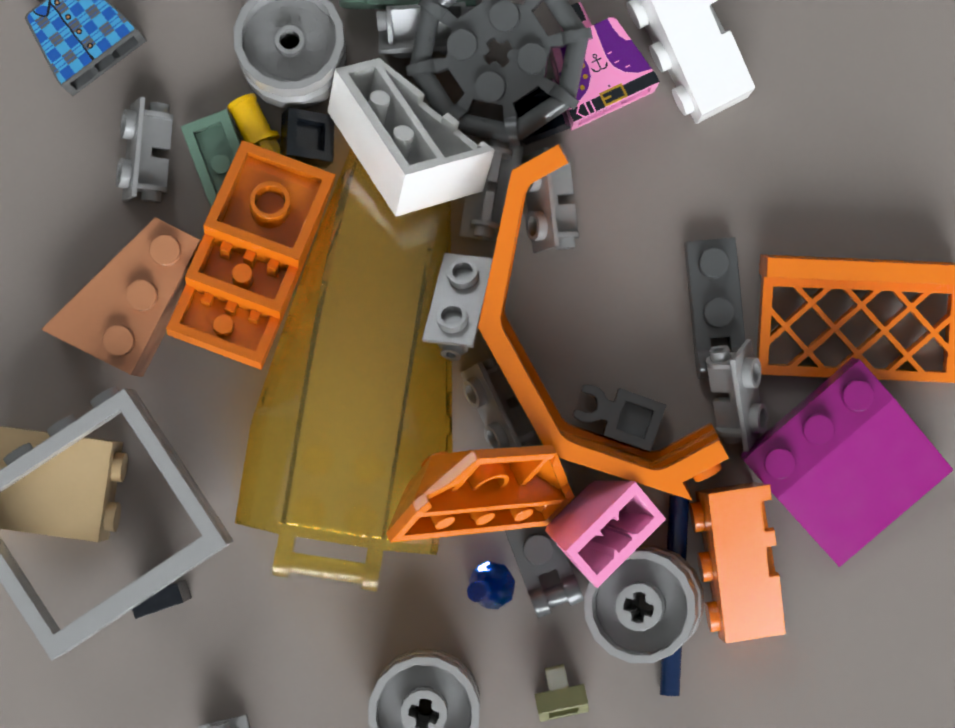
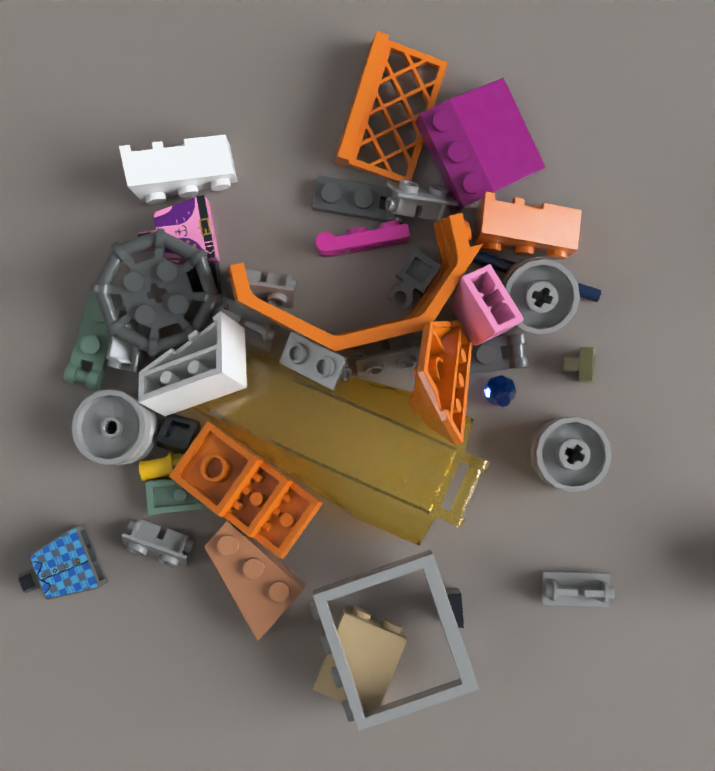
camera: 80 degrees left, 0 degrees up
(657, 324) = (360, 239): none -> dark pink plate

